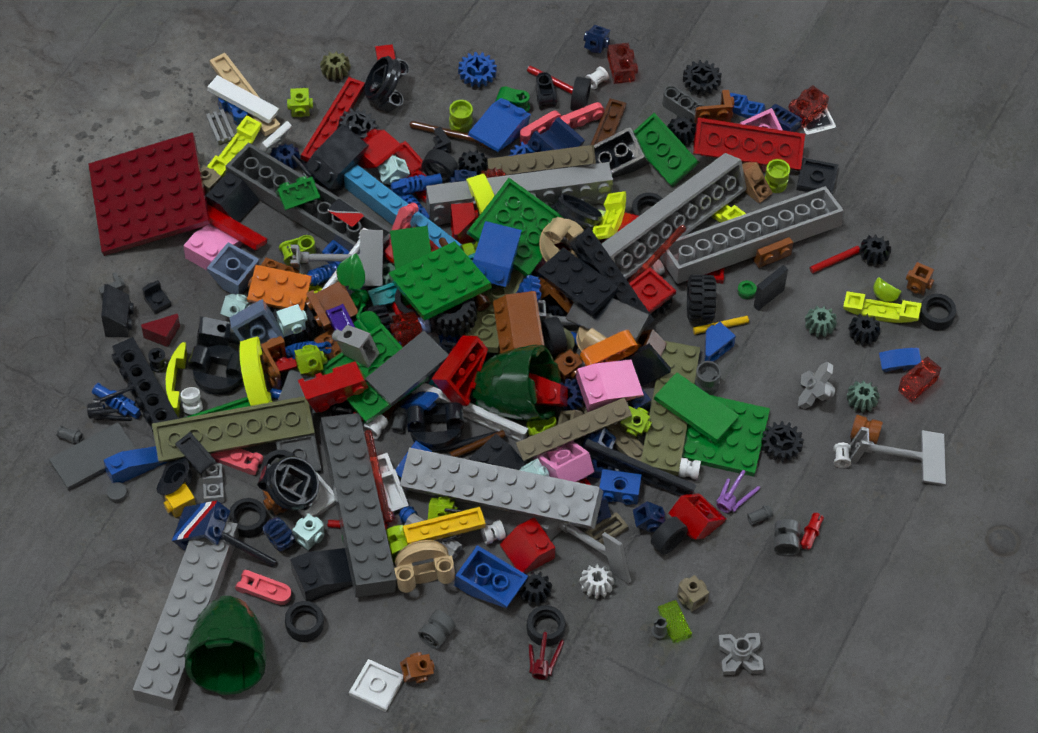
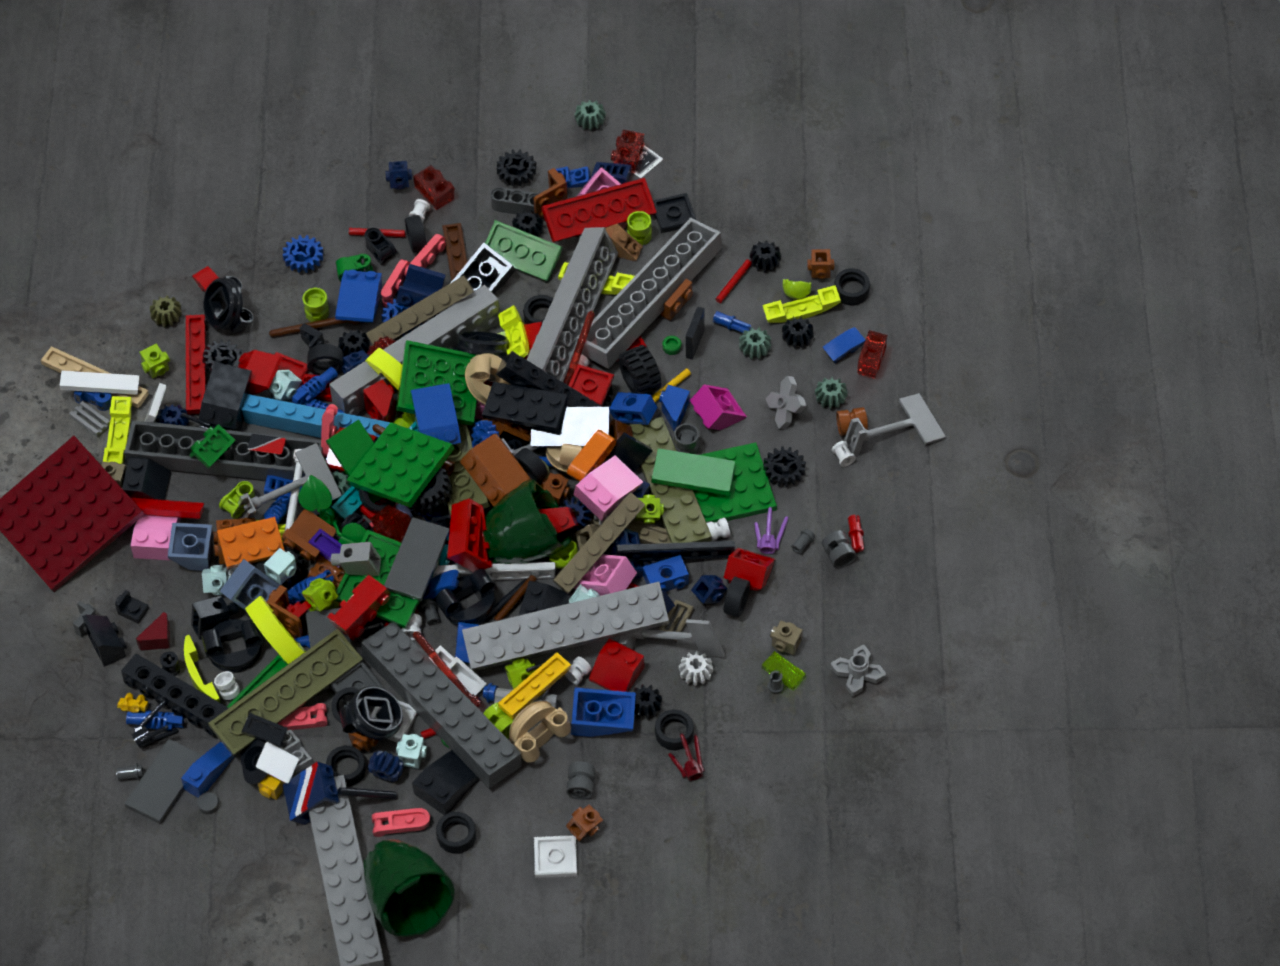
camera: 25 degrees left, 0 degrees up
(106, 378) = (133, 705): none -> yellow piece
(189, 485) = (277, 762): none -> white sticker
(677, 327) = (633, 408): none -> blue brick
(753, 361) = (717, 407): none -> dark pink slope
(793, 61) = (590, 115): none -> sand green gear
(810, 293) = (730, 322): none -> blue axle

